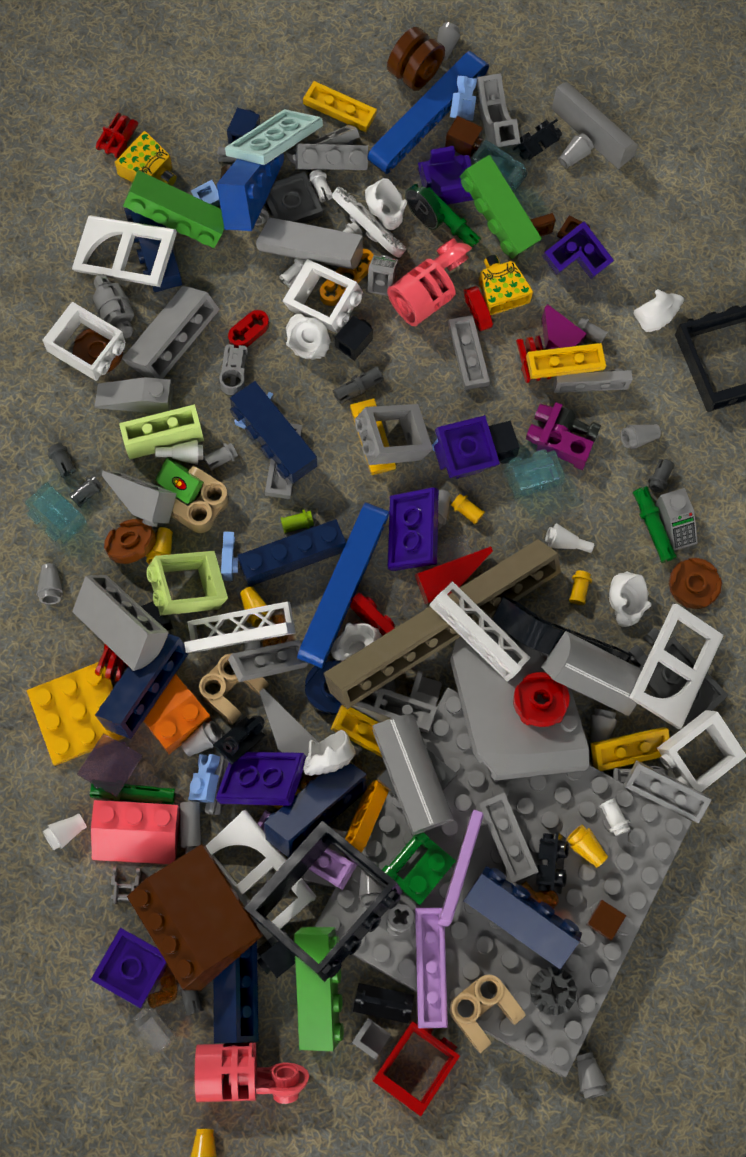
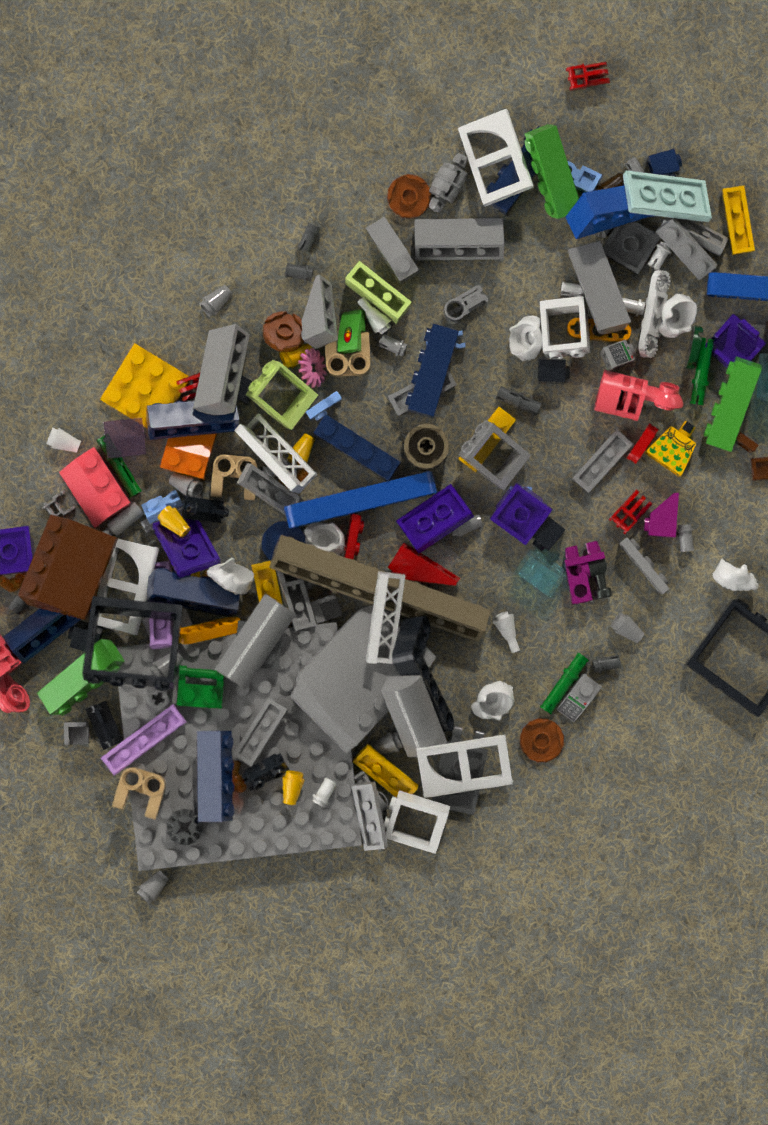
camera: 60 degrees right, 15 degrees up
(55, 513) = (267, 265): clear light blue brick -> none
(66, 326) = (398, 164): white window -> none
(147, 157) = (580, 116): yellow torso -> none
(184, 539) = (312, 378): none -> bright pink gear
(229, 773) = (172, 520): none -> yellow cone
(245, 325) = (505, 285): red beam -> none
(285, 729) = (229, 540): light grey slope -> none
(297, 521) = (384, 434): lime pin -> none
(339, 476) = (436, 439): none -> dark tan brick
(444, 1046) = (56, 774): red window -> none
(460, 868) = (217, 715): lavender tile -> none
(467, 508) = (480, 544): yellow pin -> none
(540, 714) = (352, 691): red plate -> none
(566, 361) = (639, 537): yellow plate -> none
(578, 246) = (745, 485): dark purple brick -> none
(580, 587) = (478, 662): yellow pin -> none
(606, 920) = (253, 830): reddish brown tile -> none

